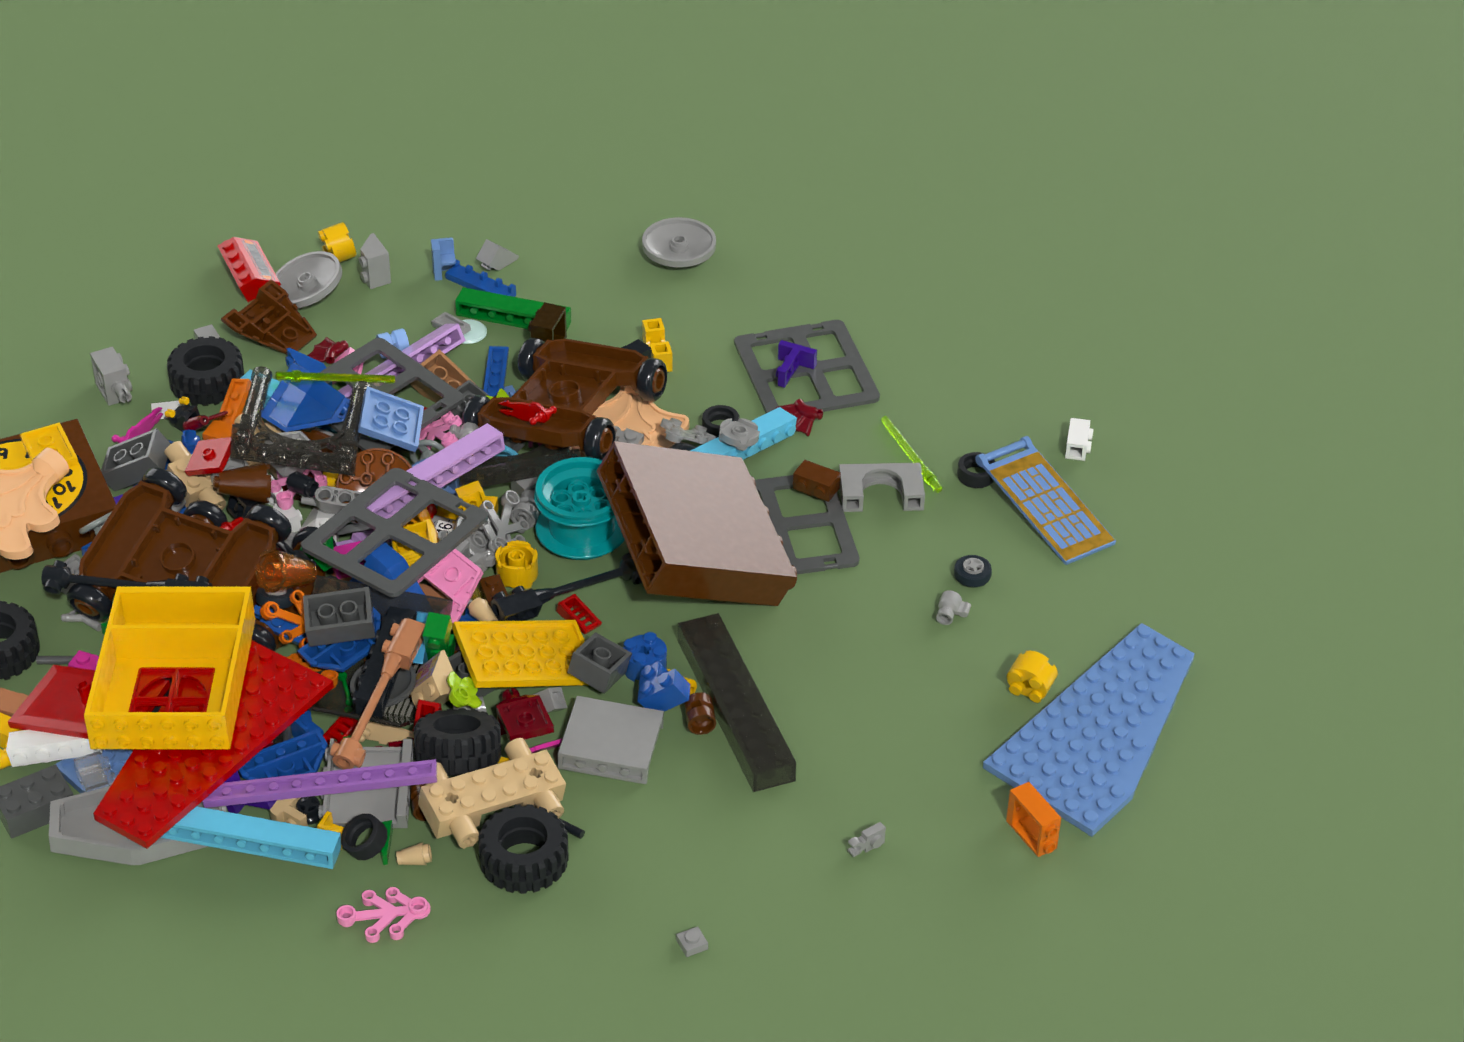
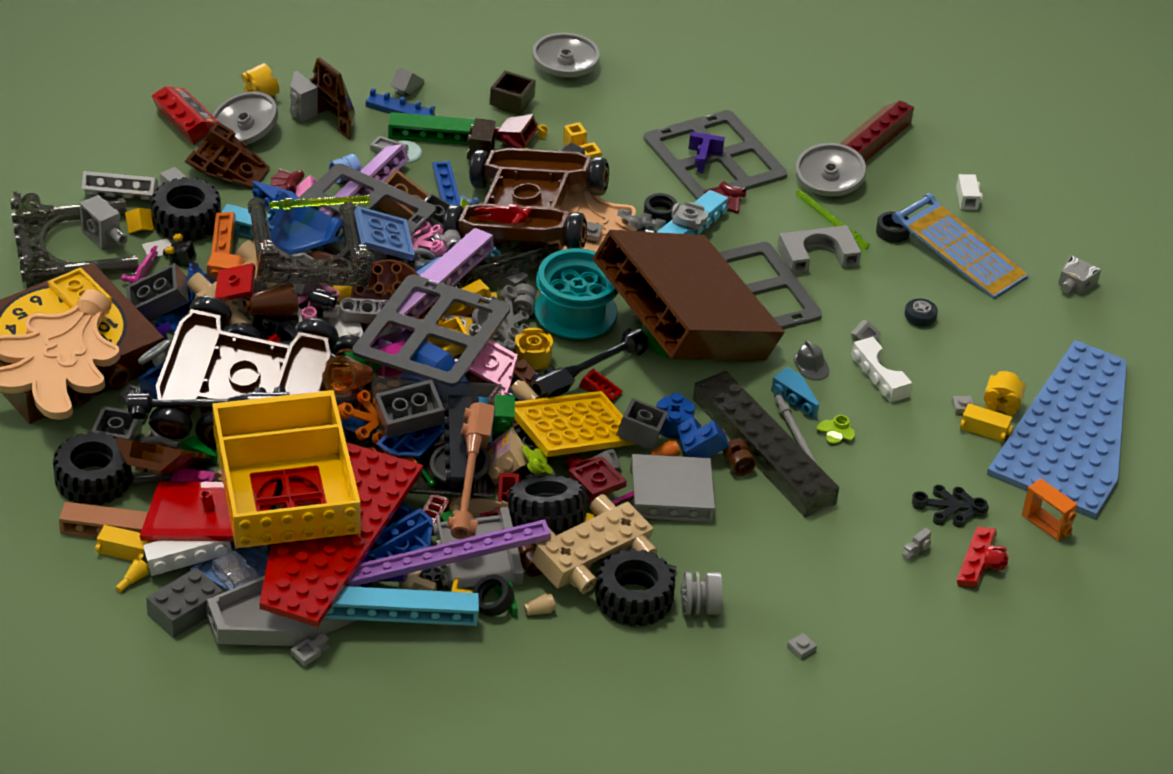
camera: 15 degrees left, 0 degrees up
(25, 413) = (47, 217): none -> clear smoke arch
(41, 604) = (117, 423): none -> dark grey brick
(58, 638) = (158, 457): none -> reddish brown wedge
(142, 336) = (119, 184): none -> white brick
(144, 872) = (309, 651): none -> light grey plate
(155, 378) = (139, 220): none -> yellow panel
(201, 421) = (202, 254): dark red arm -> none
(404, 266) = (334, 96): none -> reddish brown wedge
(412, 909) = (557, 650): bright pink plant -> none
(442, 256) = (361, 86): medium blue panel -> none
(590, 865) = (702, 593): none -> light grey wheel
(595, 320) = (519, 130): none -> dark red torso
(604, 277) = (512, 92): none -> dark brown piece
(623, 695) = (667, 449): none -> orange cone
(775, 668) = (785, 412): none -> light grey bar
(791, 642) = (795, 391): none -> dark azure slope
(816, 480) = (764, 249): reddish brown brick -> none
(826, 614) = (811, 362): none -> dark grey piece
(826, 694) = (837, 429): none -> lime plate
(899, 588) = (865, 330): none -> light grey panel
(907, 649) = (891, 383): none -> white arch
(926, 398) = (830, 169): none -> light grey dish
(937, 863) = (981, 556): none -> red plate
(951, 604) = (914, 343): light grey piece -> none
(951, 804) = (973, 506): none -> black plant
(983, 684) = (960, 403): none -> light grey plate
(993, 364) = (880, 129): none -> dark red slope
(1000, 708) = (986, 423): none -> yellow brick
(1171, 549) = (1078, 276): none -> light grey torso

